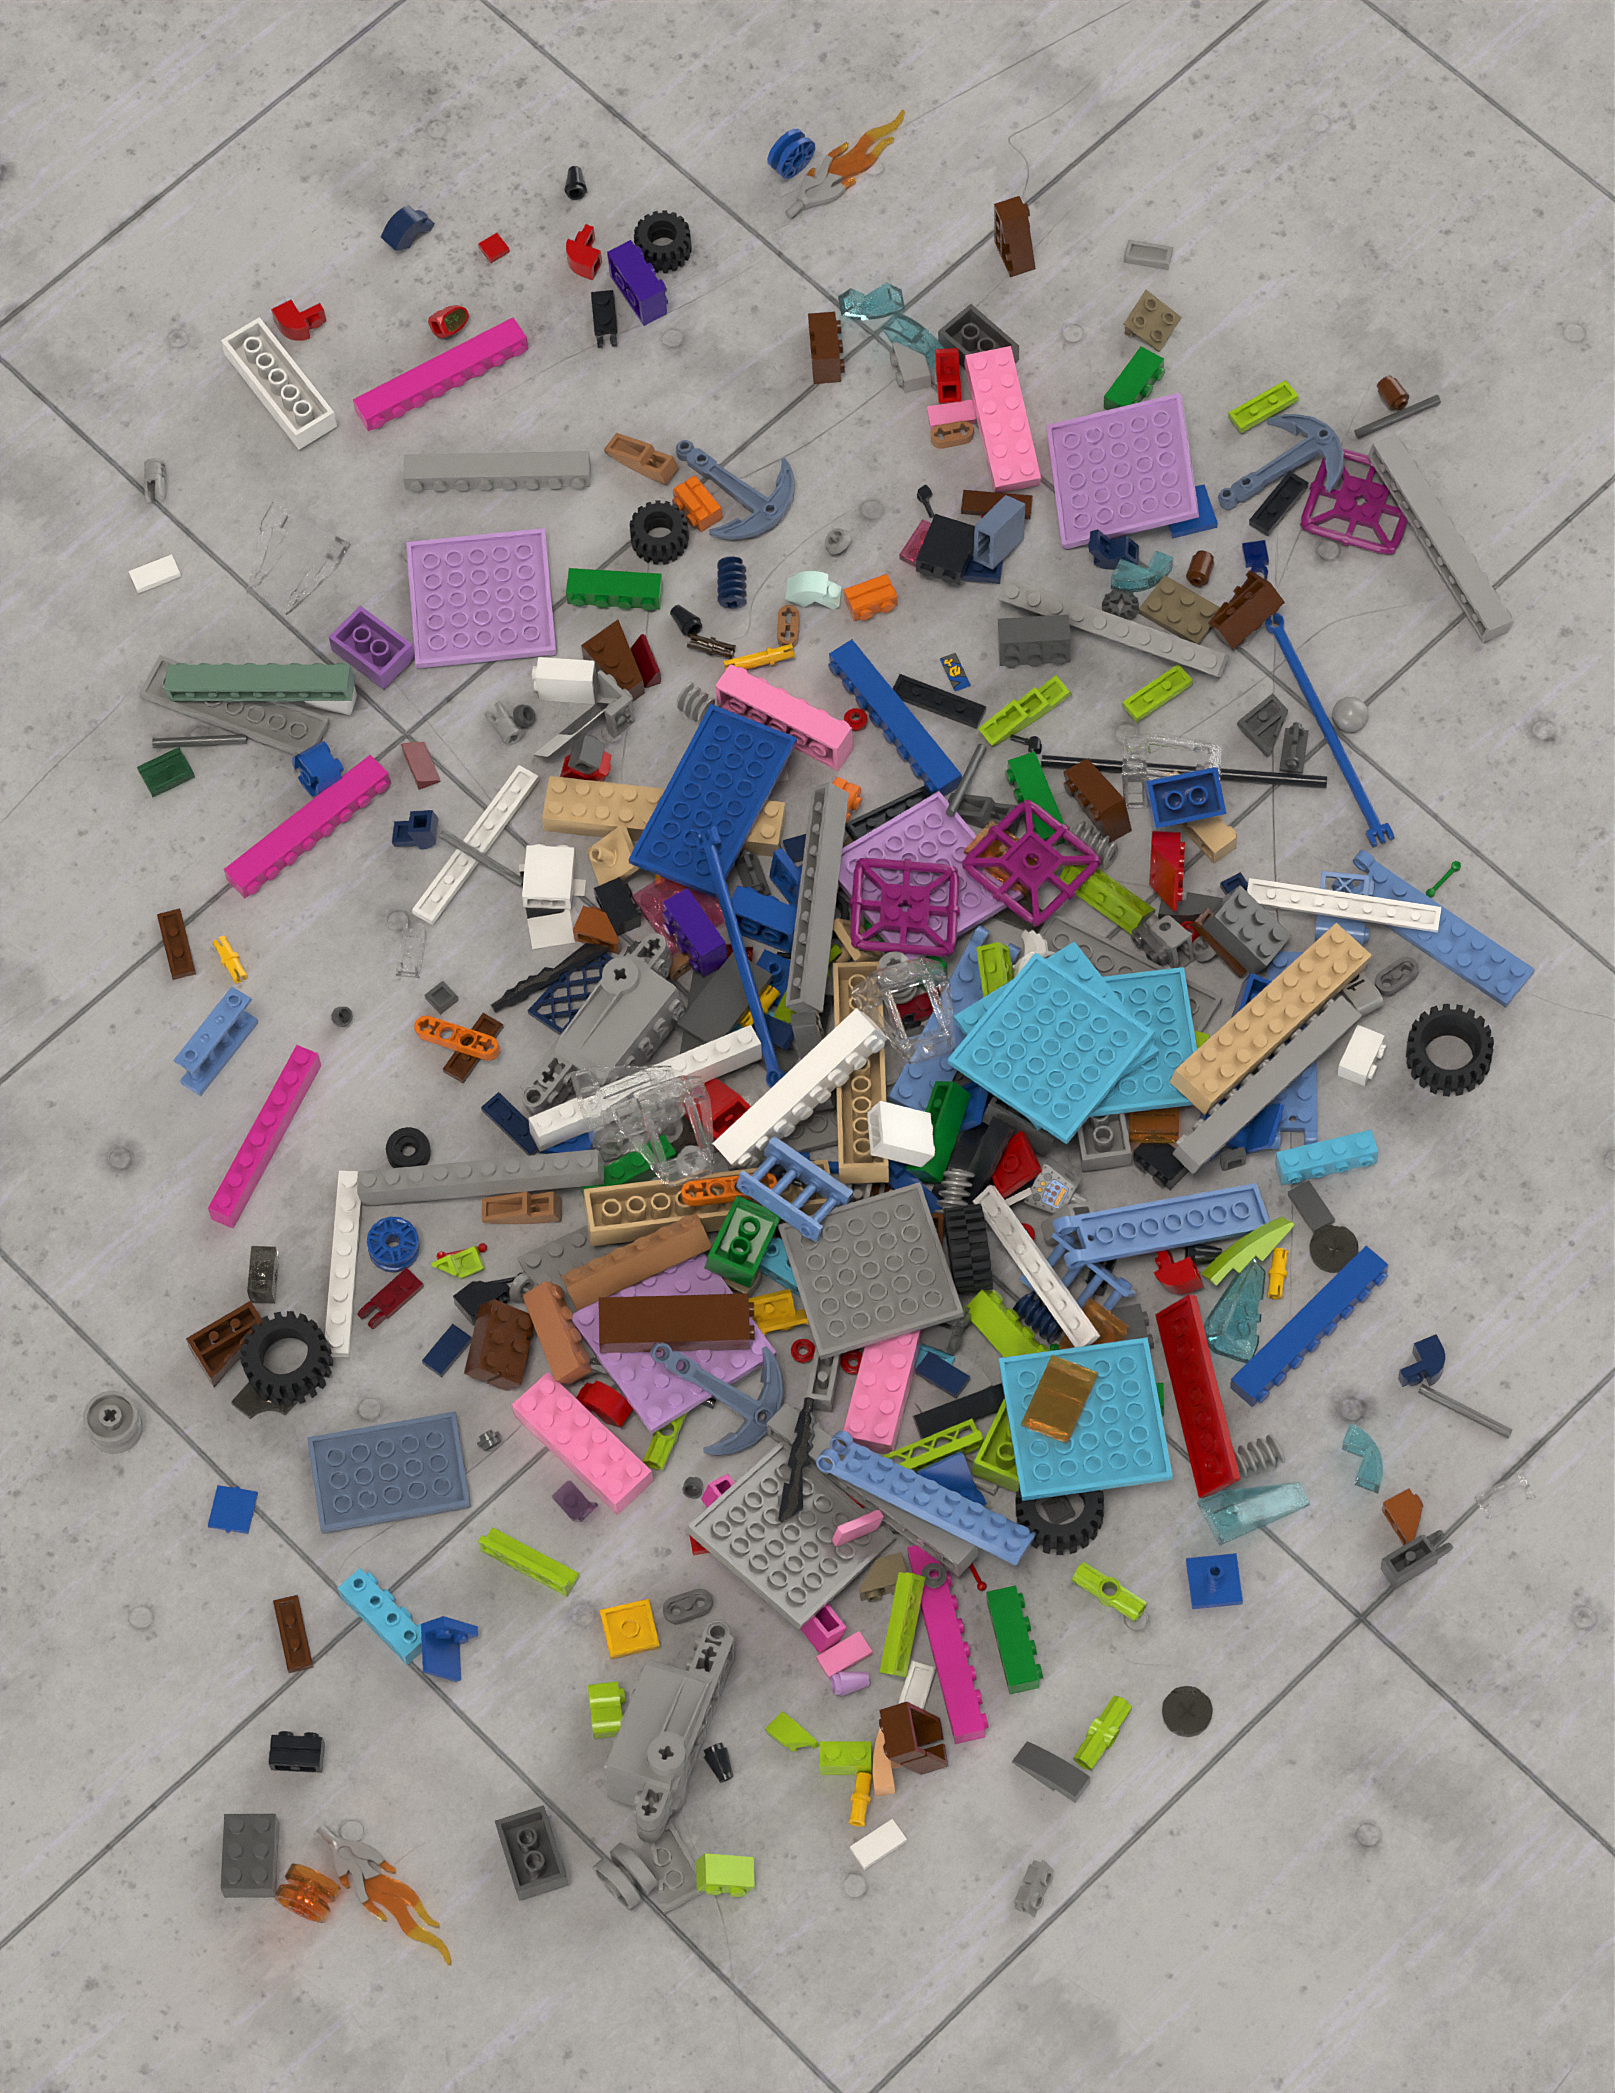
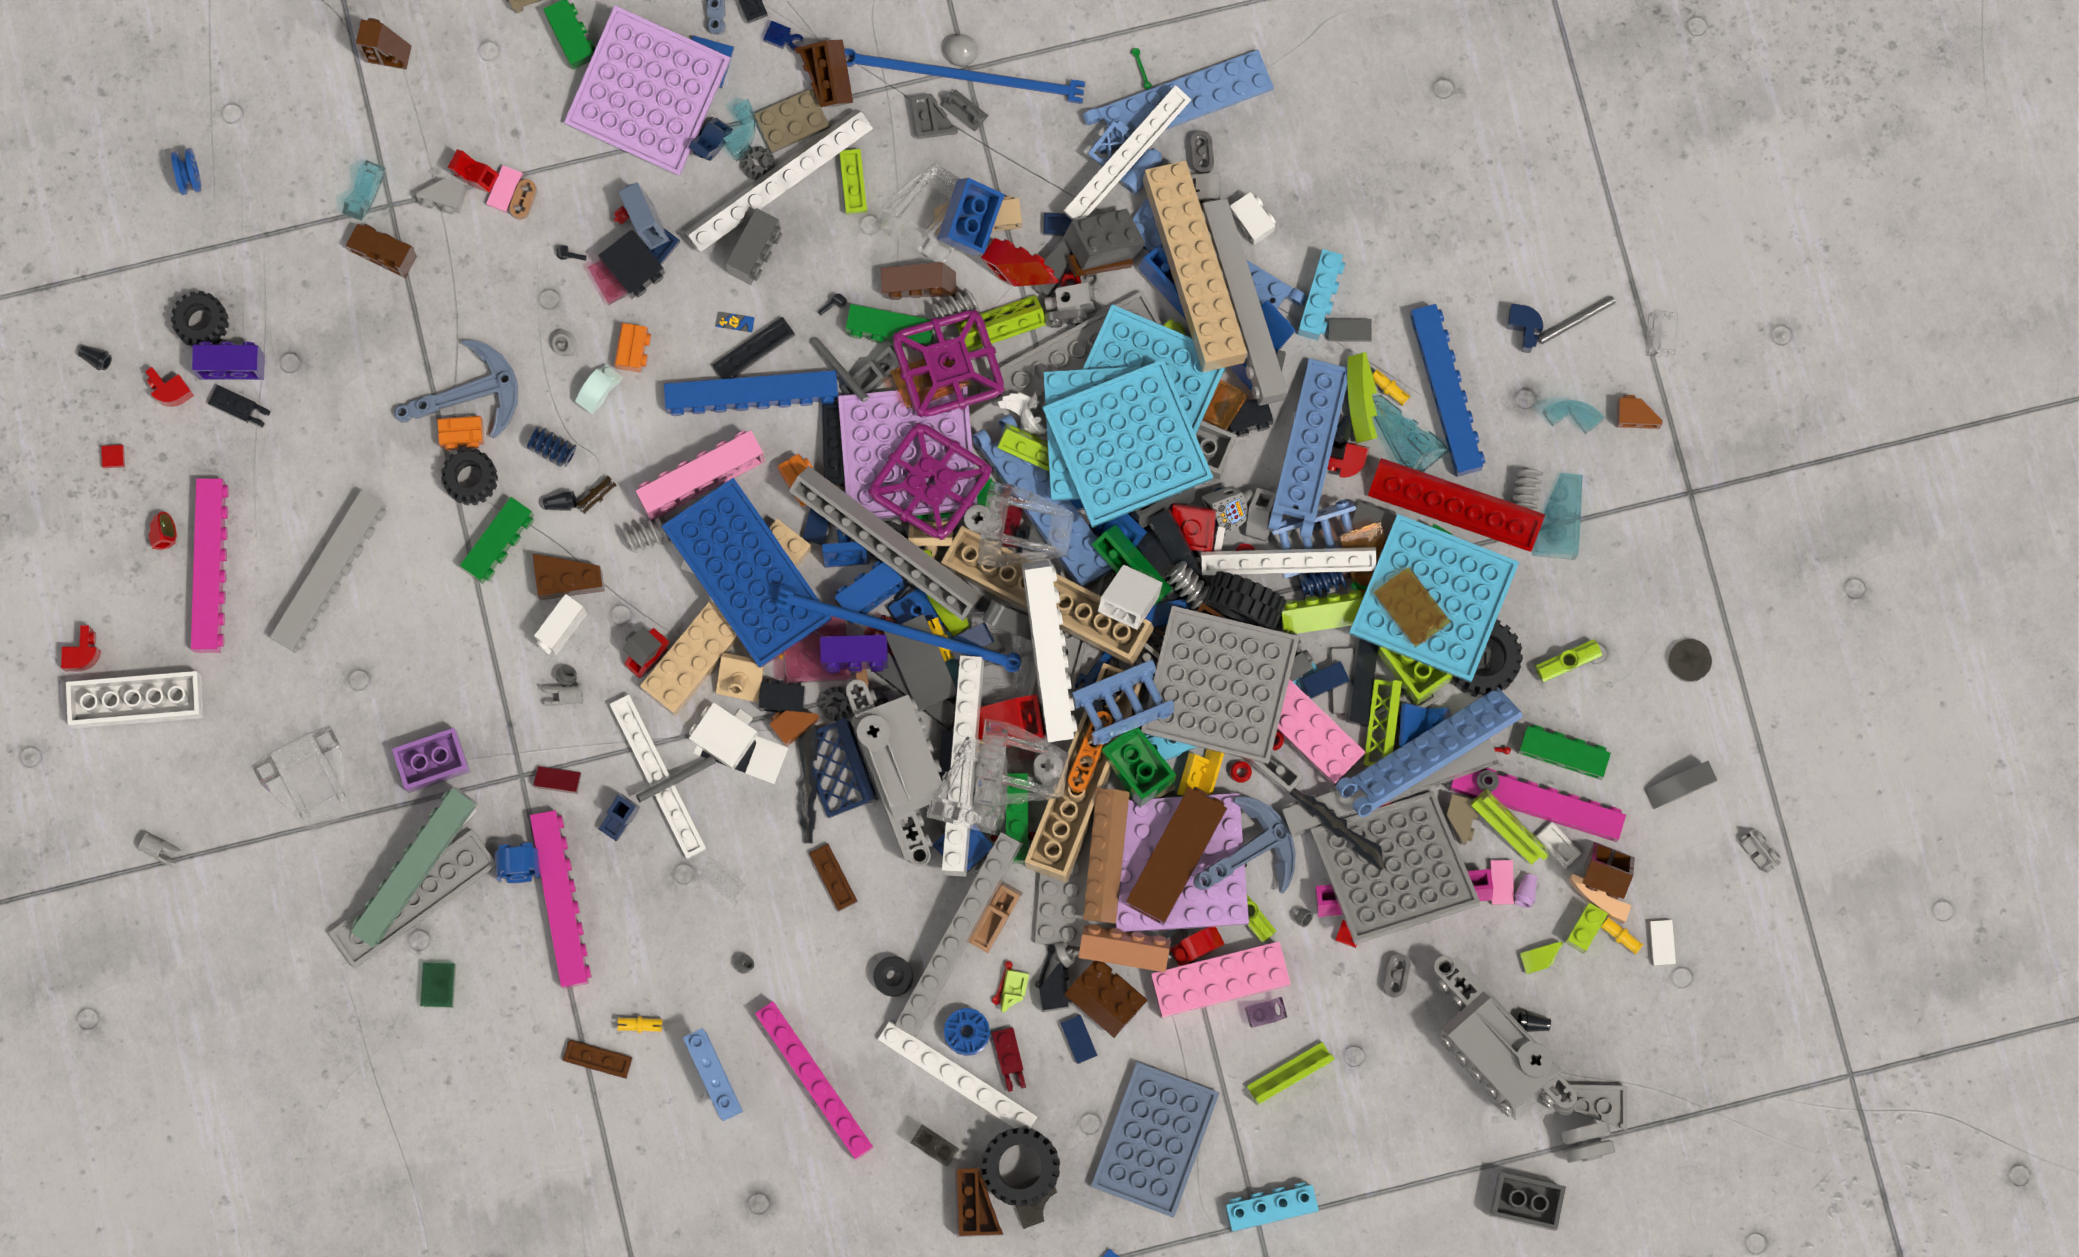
camera: 65 degrees left, 15 degrees up
(154, 574) = (246, 896): white tile -> none
(199, 741) = (424, 943): dark grey bar -> none
(404, 226) = (51, 516): dark blue brick -> none
(441, 997) = (774, 877): dark grey tile -> none
(441, 1646) = (1327, 1178): blue bracket -> none
(457, 1037) = (823, 888): orange beam -> none
(480, 598) = (437, 649): lavender plate -> none
(489, 1440) = (1174, 1048): dark grey plate -> none
(510, 1122) = (917, 883): dark blue tile -> none
(574, 727) = (604, 640): sticker -> none
(606, 1708) = (1444, 1082): lime brick -> none
(618, 713) = (608, 591): light grey bracket -> none
(629, 1629) = (1387, 1028): yellow tile -> none
(642, 458) = (389, 451): medium nougat slope -> none
(646, 662) = (578, 552): dark red slope -> none
(725, 1874) = (1626, 1068): lime brick -> none
(751, 872) = (821, 580): dark grey hinge -> none
(761, 658) = (631, 464): yellow pin -> none
(793, 626) = (618, 421): medium nougat beam -> none
(833, 170) = (217, 146): piece -> none
(857, 1528) = (1418, 815): bright pink tile -> none
(859, 724) = (730, 428): red plate -> none
(912, 335) = (415, 177): clear light blue brick -> none
(973, 334) = (459, 128): dark grey brick -> none
(982, 502) = (606, 203): reddish brown tile -> none
(1002, 420) = (544, 153): bright pink brick -> none
(1025, 711) = (805, 290): lime slope -> none
(1102, 1733) = (1673, 730): lime piece -> none
(1200, 568) = (766, 83): reddish brown brick -> none
(1214, 1581) = (1602, 580): blue tile -> none
(1226, 774) = (933, 200): black piece -> none
(1333, 1248) = (1392, 334): clear smoke tile -> none
(1413, 1558) = (1673, 428): dark grey hinge -> none
(1449, 1023) = (1297, 128): black tyre -> none

